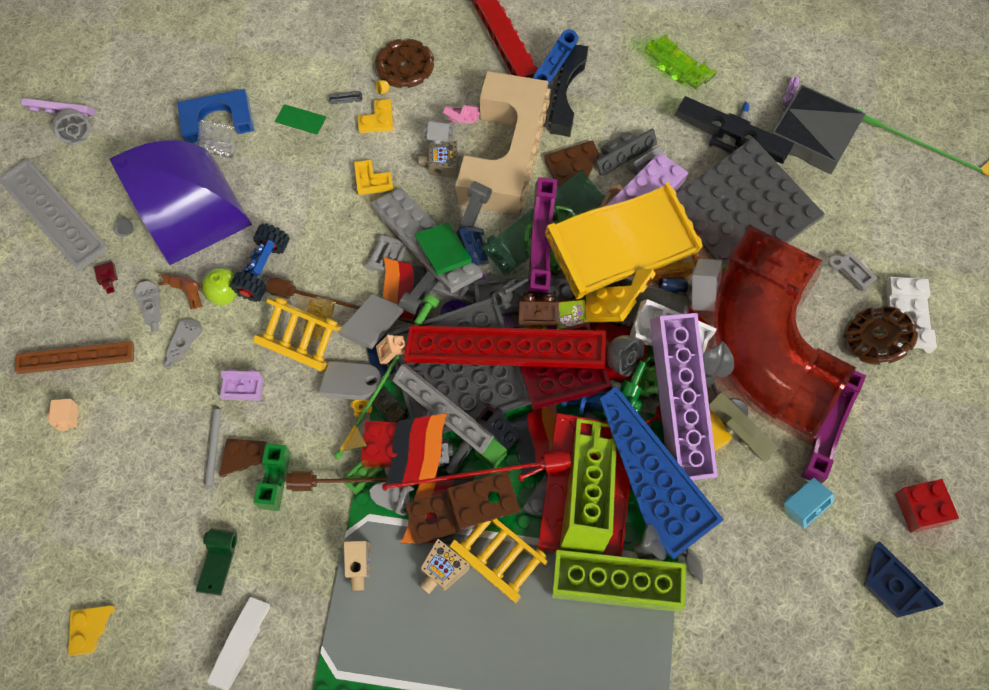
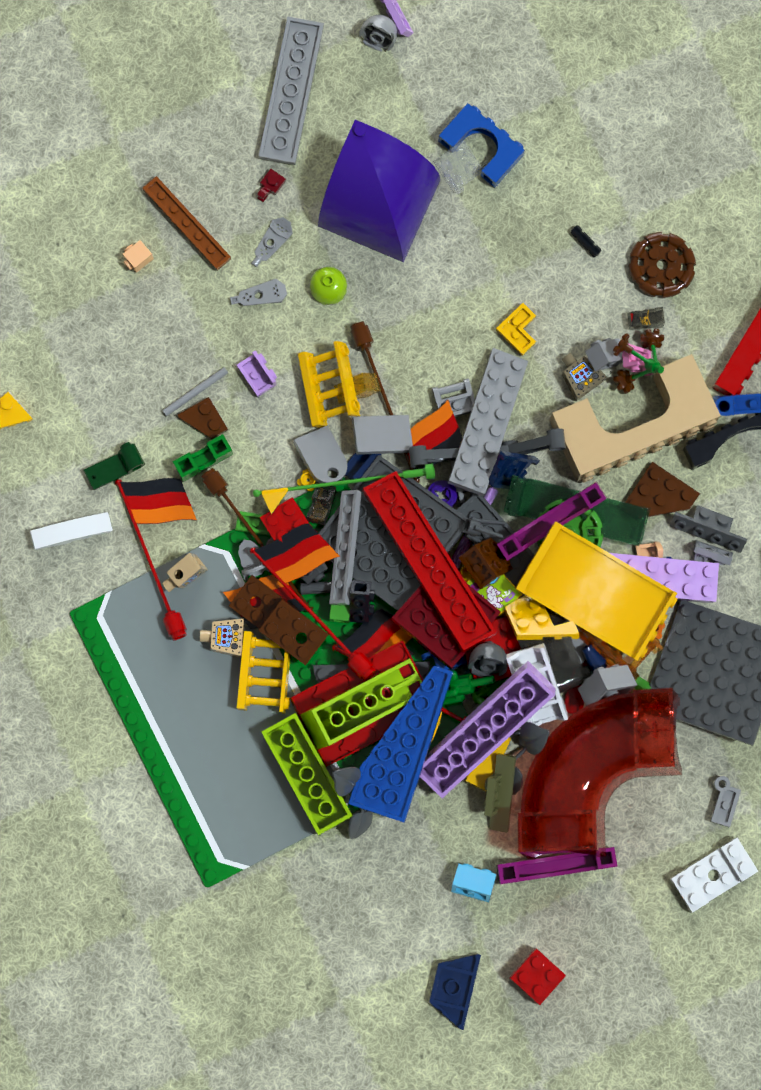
camera: 50 degrees right, 15 degrees up
(124, 227) = (322, 161): dark grey piece -> none
(187, 286) = (309, 257): dark orange arm -> none
(268, 240) = (369, 300): black plate -> none
(278, 548) = (158, 503): none -> flag
(300, 119) = (536, 218): green sticker -> none
(380, 121) = (586, 291): yellow plate -> none
(382, 87) = (621, 265): yellow hinge -> none
(390, 347) = (367, 470): light nougat bracket -> none
(436, 93) = (646, 319): none -> clear smoke leg
(442, 248) = (482, 446): green tile -> none
(454, 99) = (650, 340): none -> reddish brown plant
(881, 344) = (672, 869): reddish brown plate -> none

